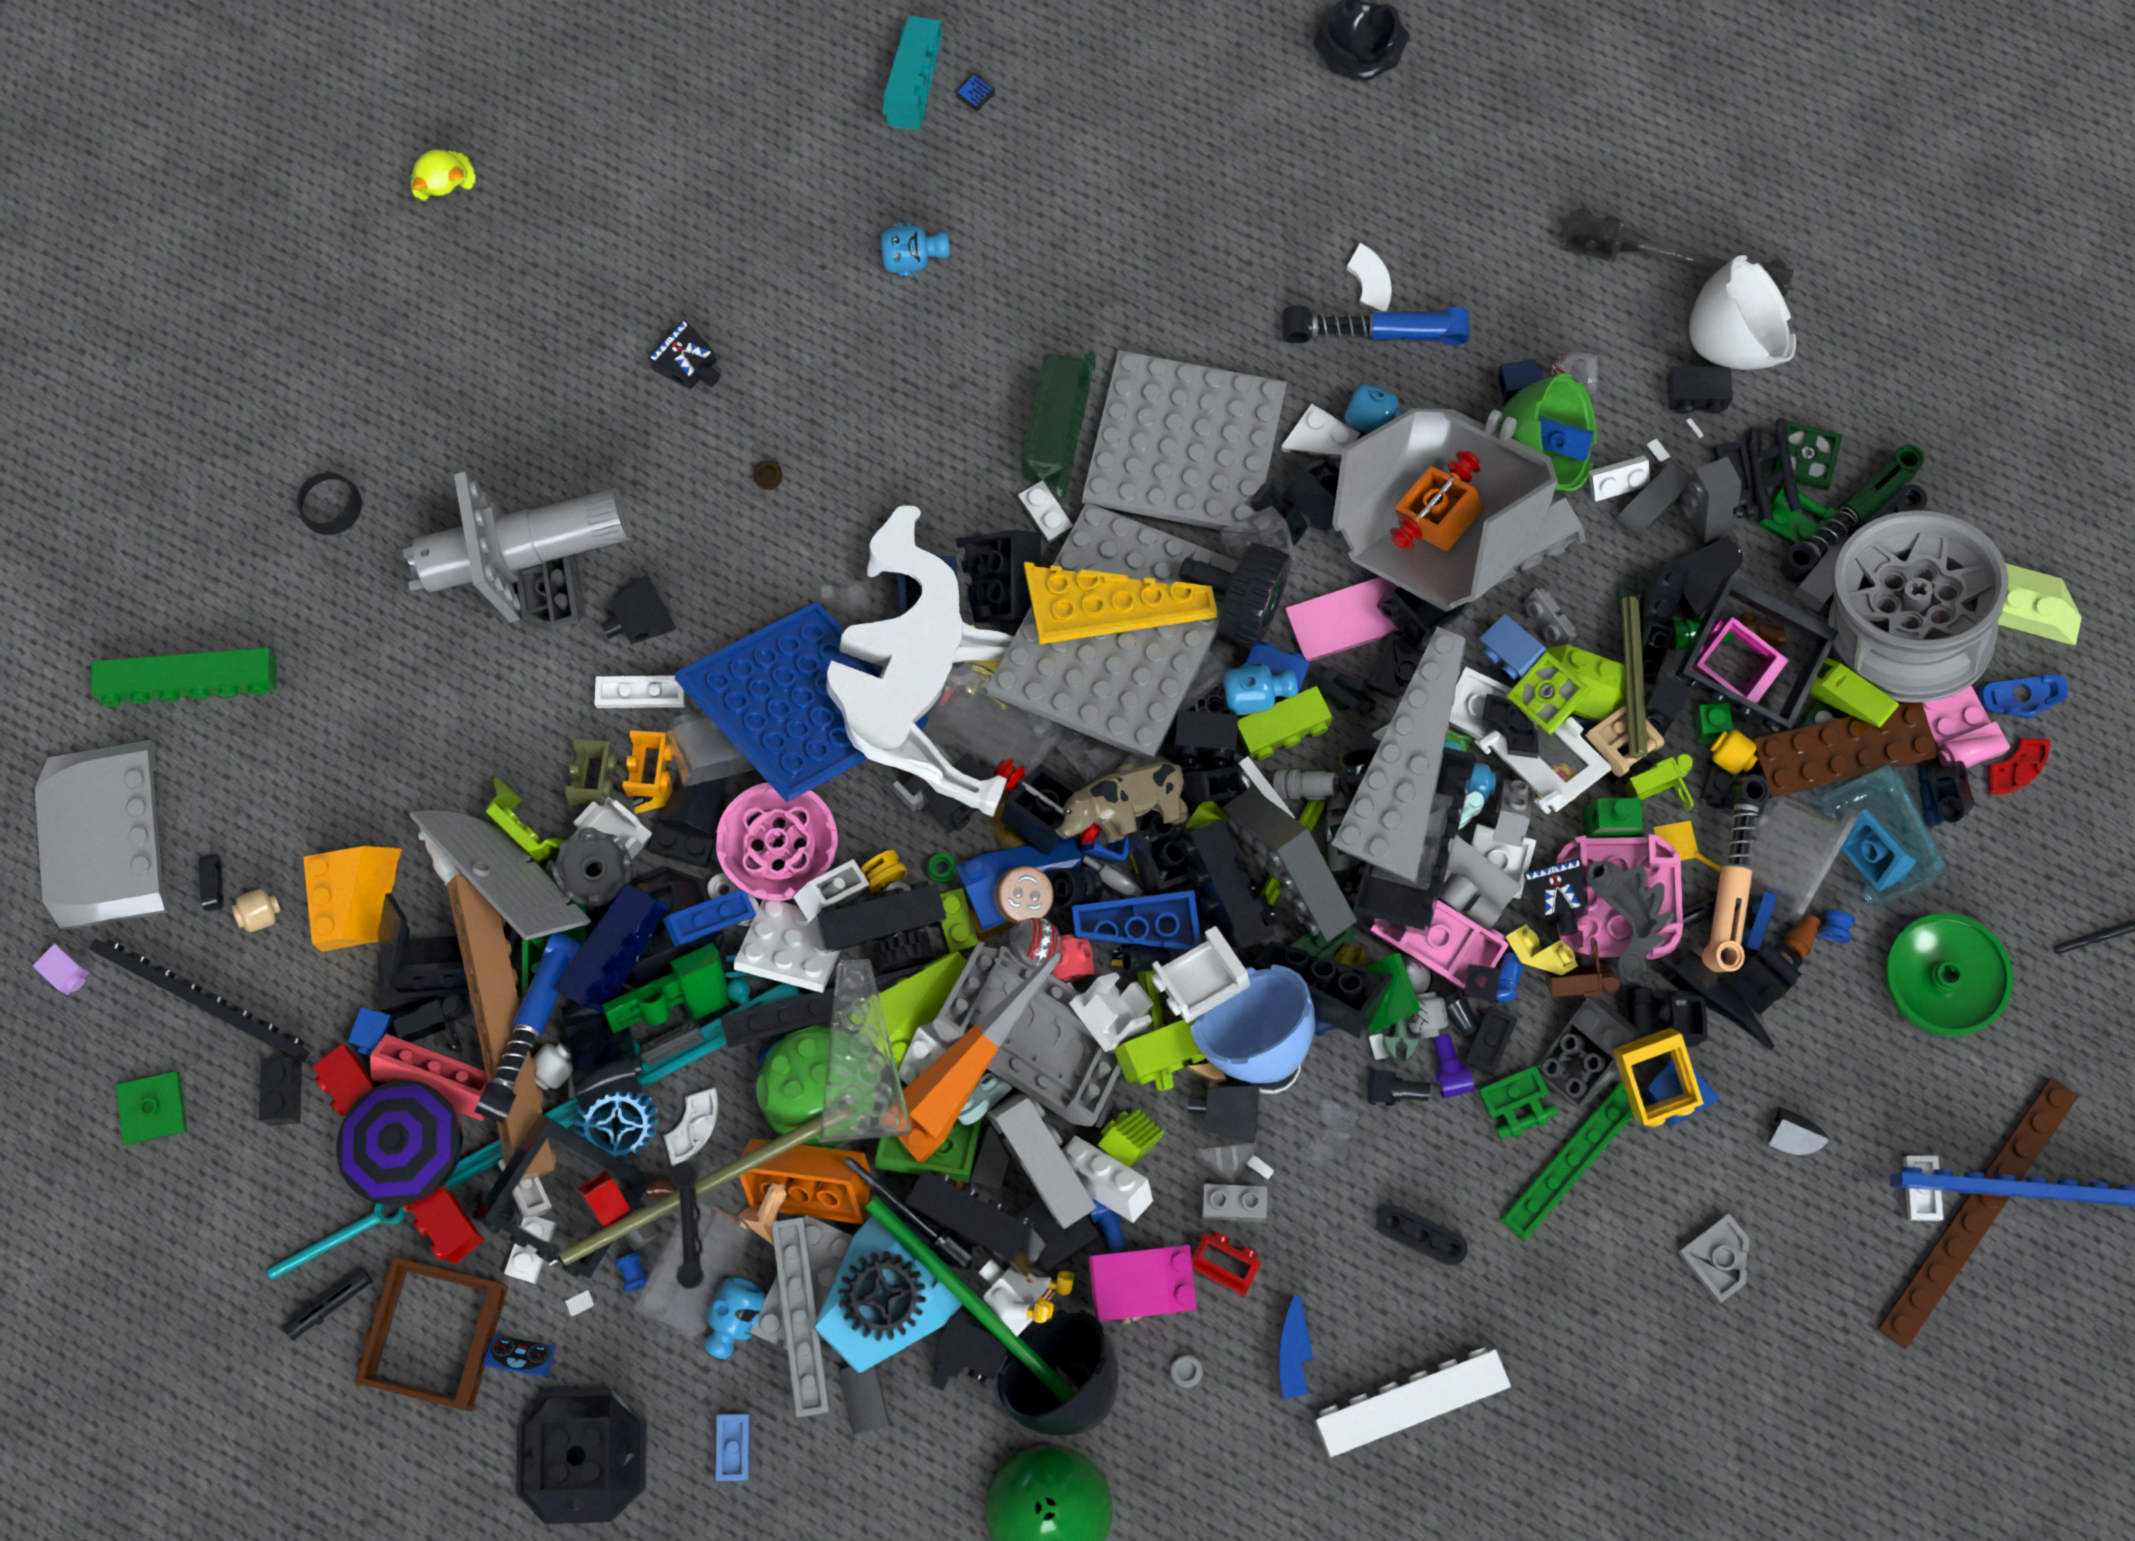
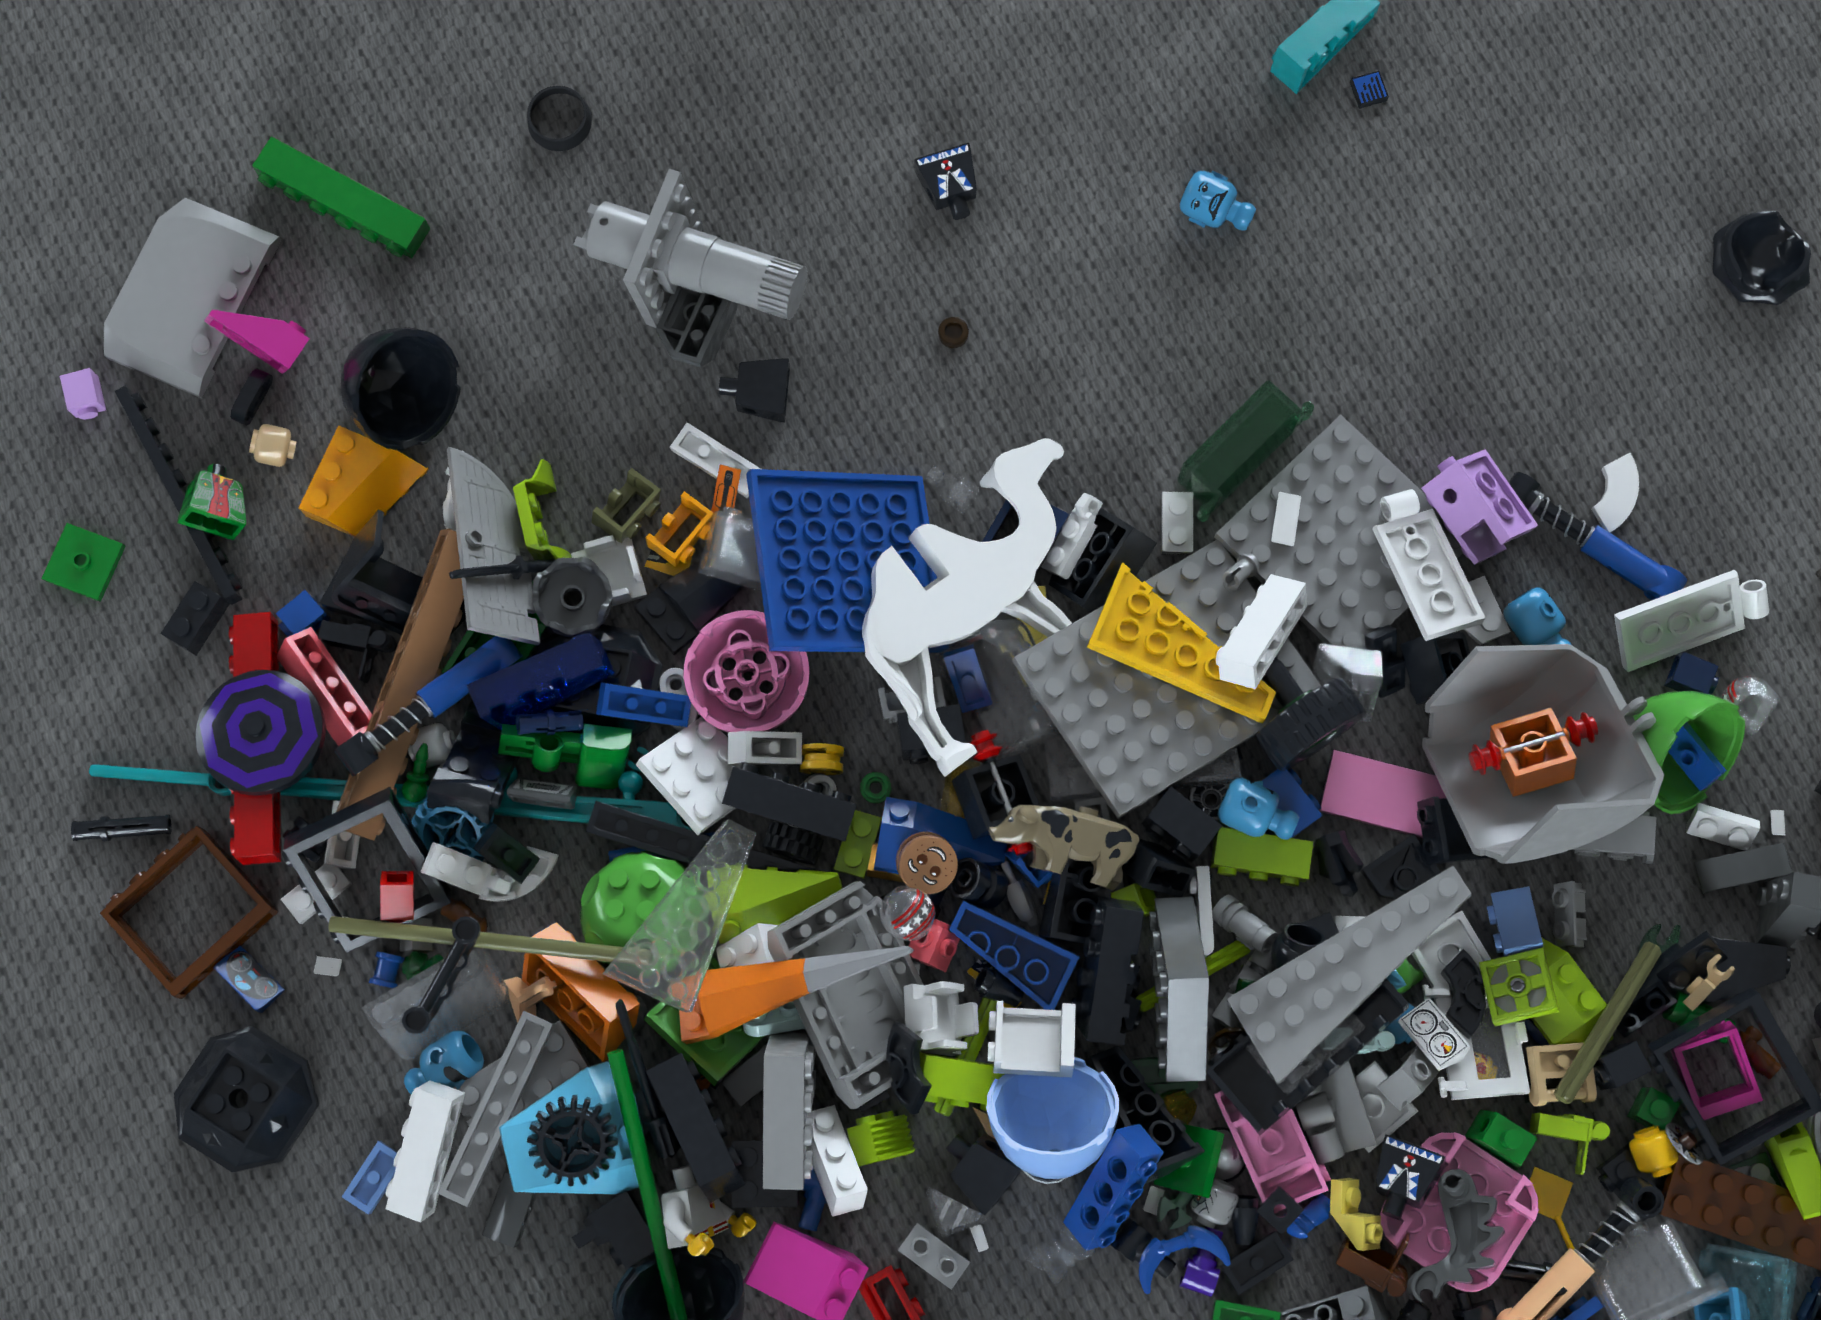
camera: 30 degrees right, 5 degrees up
(197, 824) = (266, 338): none -> dark pink slope
(237, 986) = (214, 503): none -> green torso
(336, 790) = (408, 389): none -> black piece
(531, 872) = (516, 568): none -> black sword
(560, 1107) = (415, 788): none -> green bar
(640, 978) = (549, 722): none -> dark blue pin
(645, 1146) = (462, 871): none -> white hinge
(654, 1248) = (418, 962): none -> dark green plate
(662, 707) = (726, 488): none -> orange sticker
(672, 1109) = (506, 853): none -> black plate
(762, 1394) = (424, 1150): none -> white brick
(959, 732) = (968, 678): none -> blue plate
(971, 572) = (1073, 537): none -> white hinge
(1113, 1065) = (907, 1076): none -> black tile
(1122, 509) = (1246, 566): none -> light grey pin
(1129, 453) = (1286, 518): none -> white sticker
(1169, 546) = (1262, 631): none -> white brick
(1262, 348) = (1478, 505): none -> lavender torso
(1263, 421) = (1426, 567): none -> white hinge
(1341, 1050) = (1113, 1187): none -> blue brick
(1428, 1052) = (1158, 1249): none -> blue piece
(1488, 338) = (1688, 618): none -> white hinge
(1510, 770) = (1434, 1035): none -> slope
(1686, 606) = (1700, 988): none -> tan plate
(1753, 729) = (1684, 1143): none -> piece

